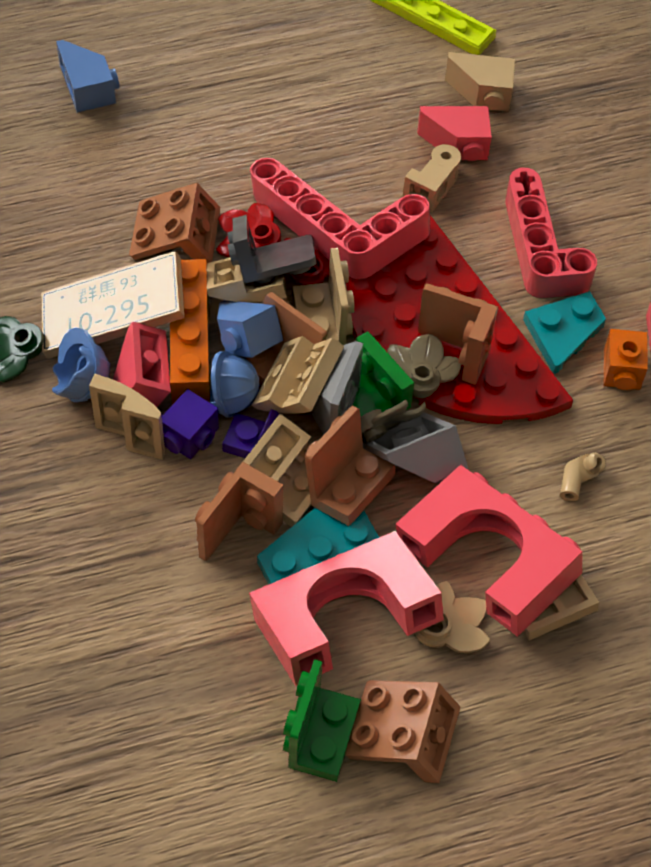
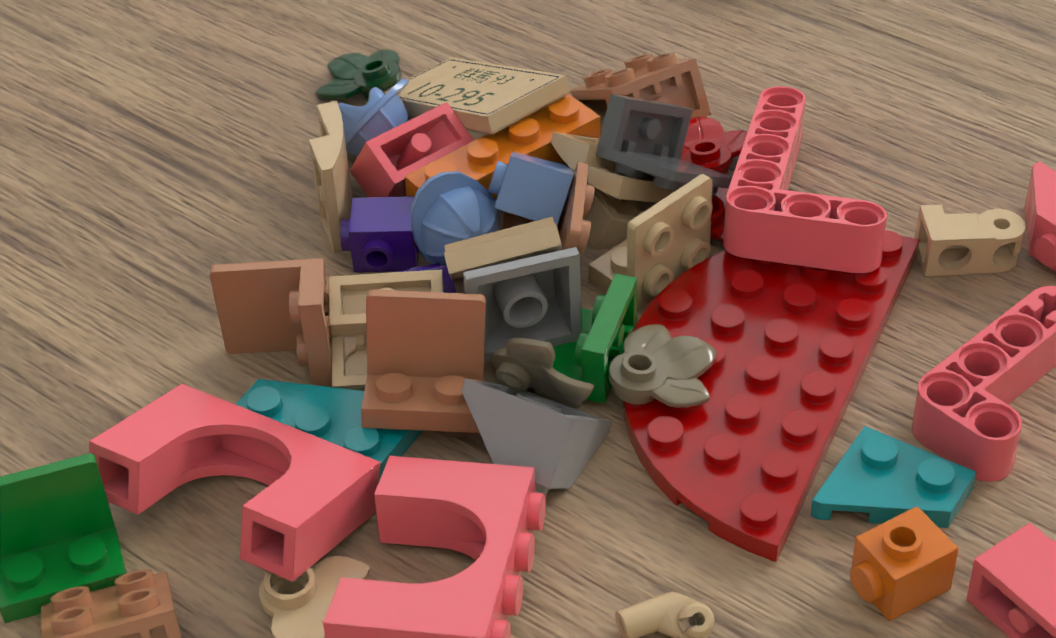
camera: 60 degrees right, 15 degrees down
(459, 322) = (724, 358): nougat bracket -> none

